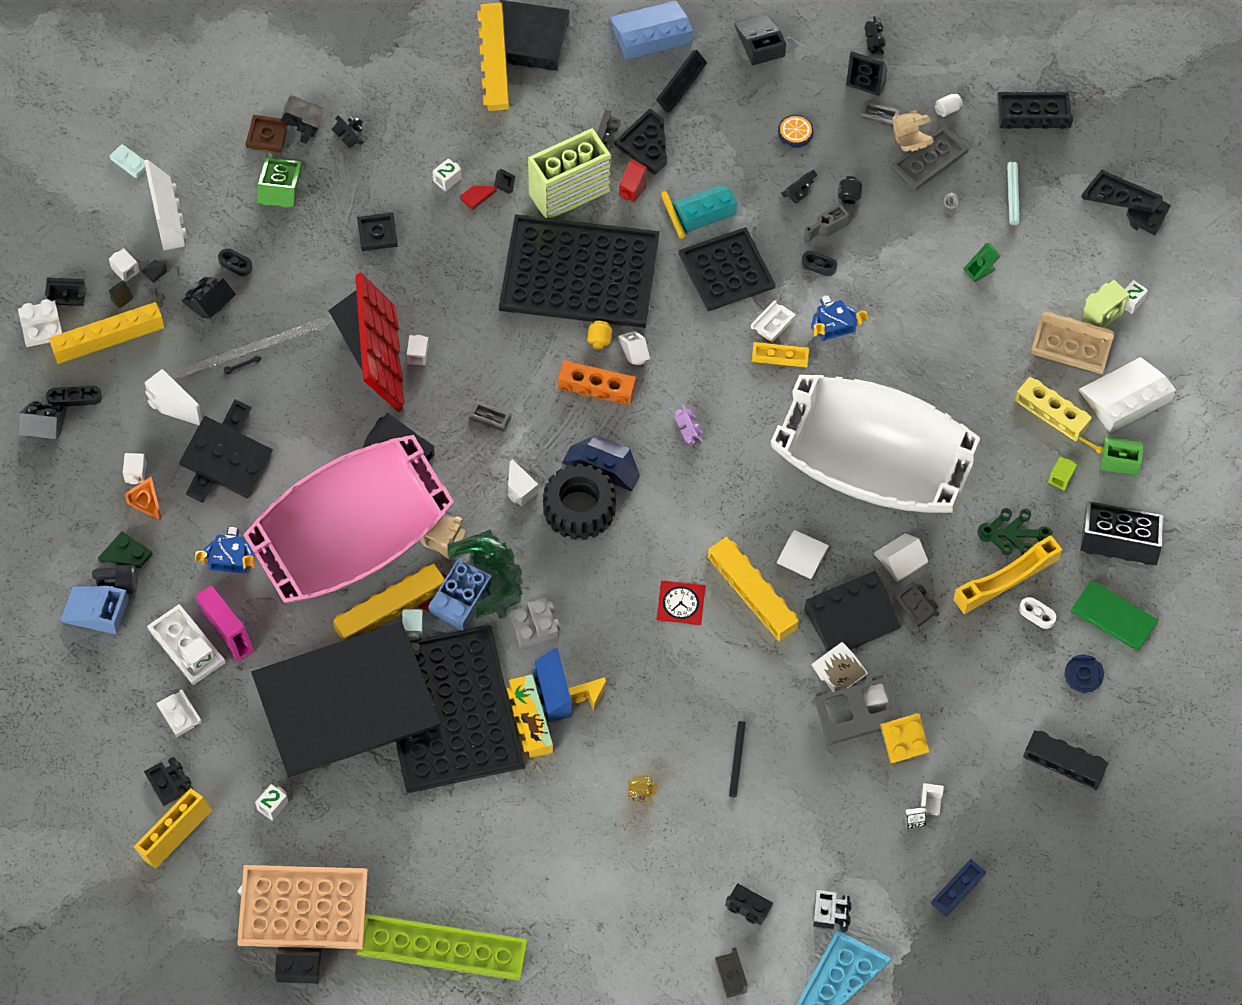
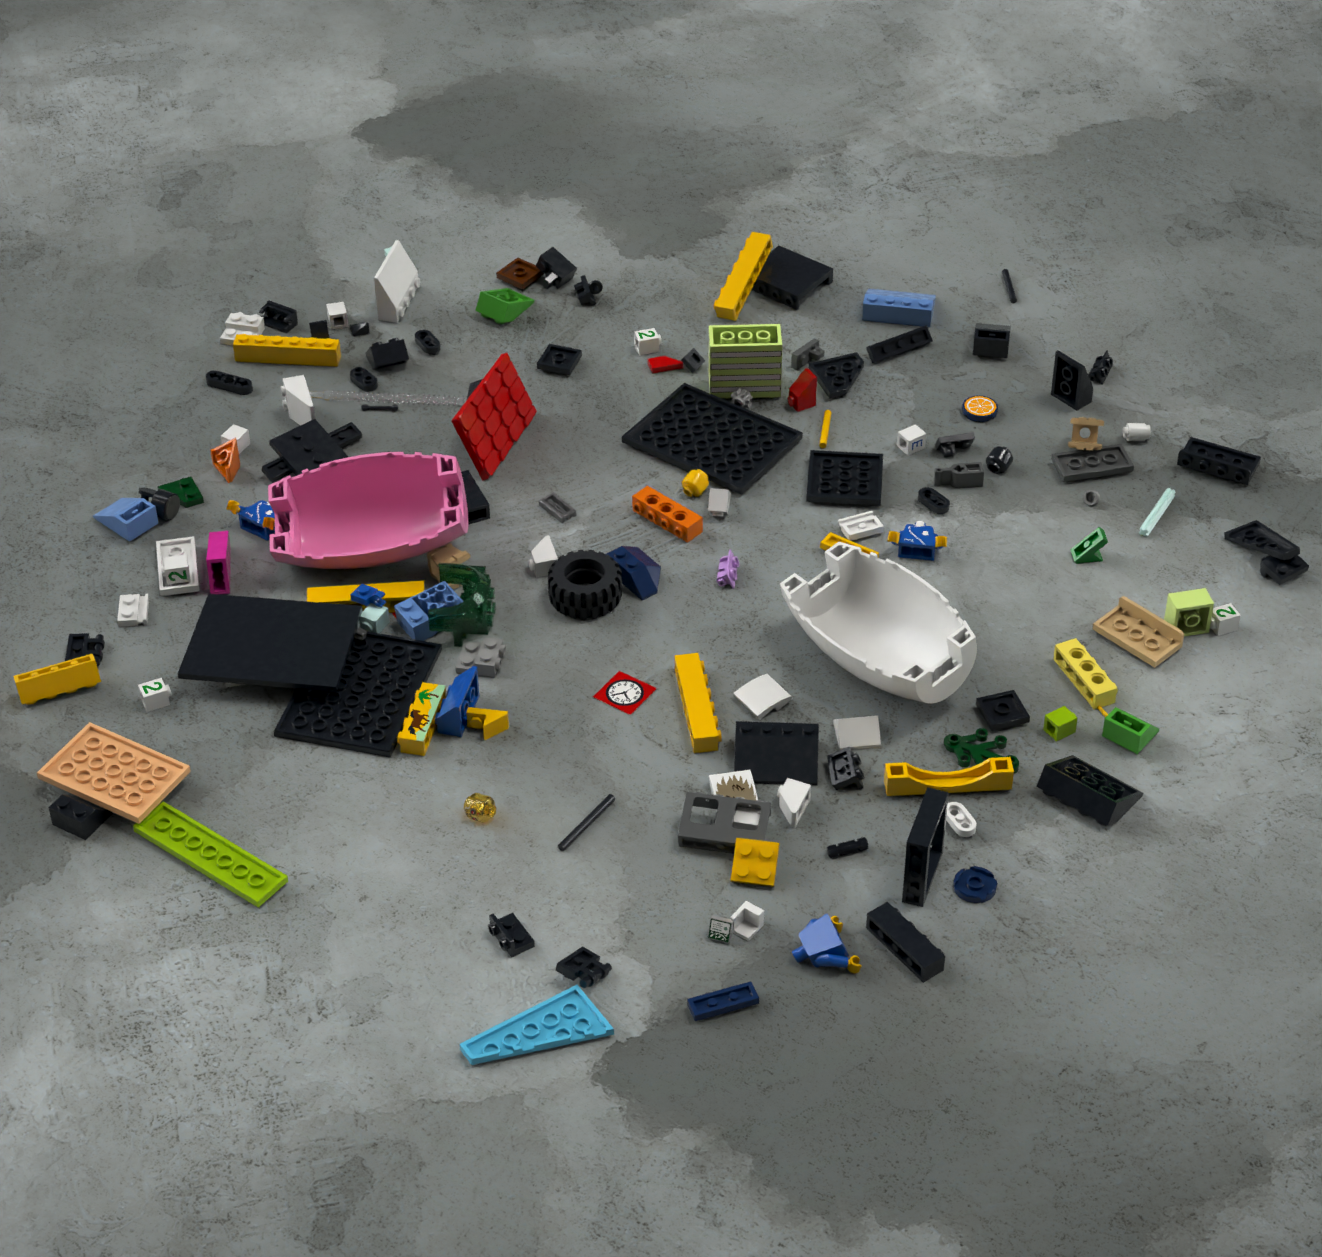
camera: 30 degrees right, 20 degrees down
(41, 420) = (189, 386): slope -> none
(202, 335) = (363, 379): none -> black plate
(395, 606) = (366, 594): none -> blue plate
(417, 350) = (529, 442): white brick -> none
(580, 212) = (742, 398): none -> light grey gear
(705, 207) = (857, 432): teal slope -> none
(731, 974) = (452, 980): clear smoke panel -> none
(760, 197) = (911, 439): none -> white brick
(879, 116) = (1062, 419): flat silver tile -> none
(895, 657) = (793, 799): none -> white slope
(964, 684) = (847, 847): none -> black axle
(1006, 794) = (824, 945): none -> torso
(1008, 479) = (1002, 710): none -> black plate
(1043, 667) = (920, 858): none -> black window
(1114, 615) = (1038, 851): green tile -> none
(1128, 394) = (1170, 691): white slope -> none

